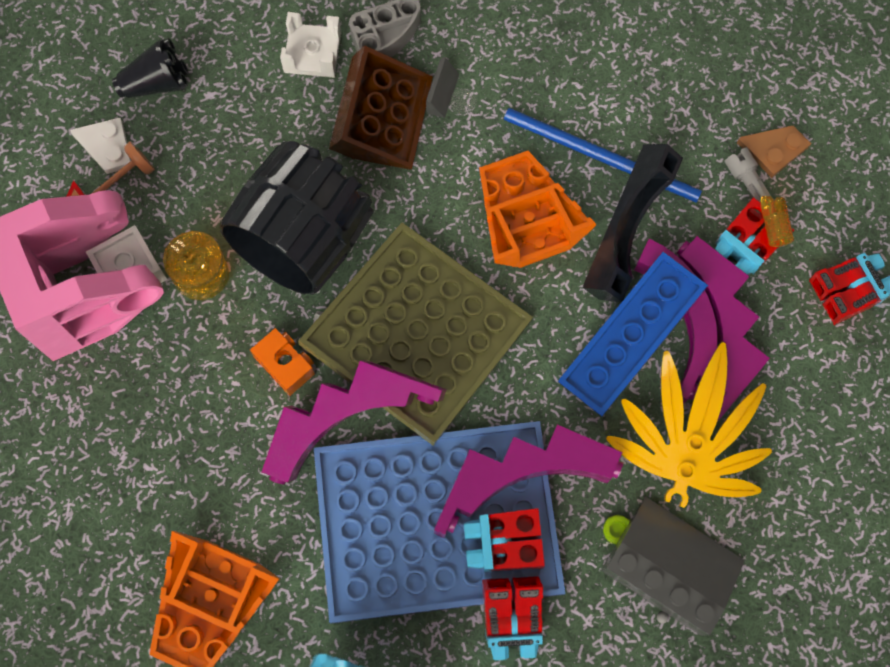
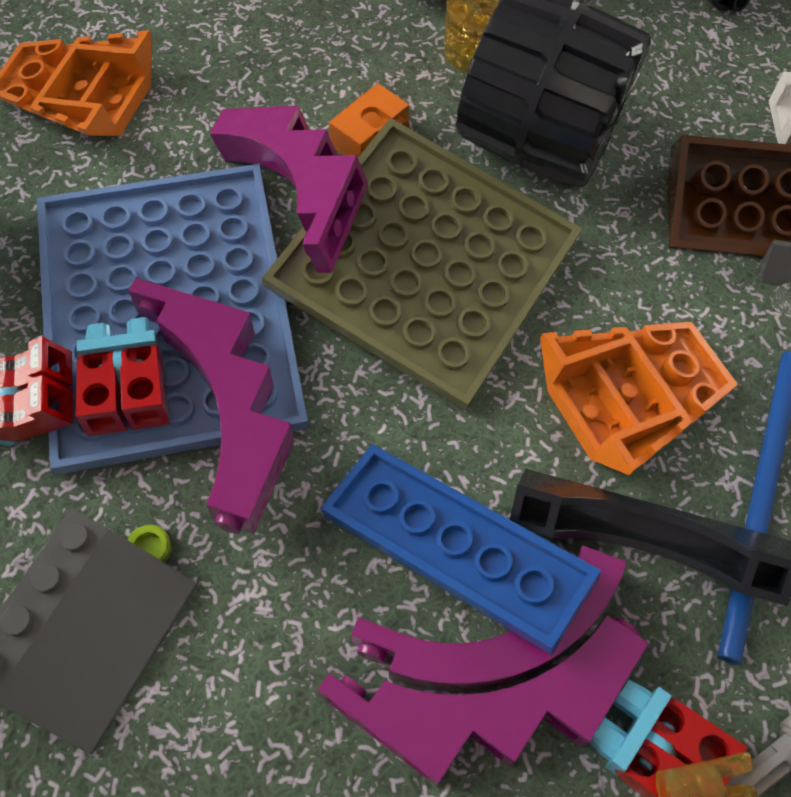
camera: 85 degrees right, 10 degrees down
(691, 453) = (253, 633): yellow plant -> none

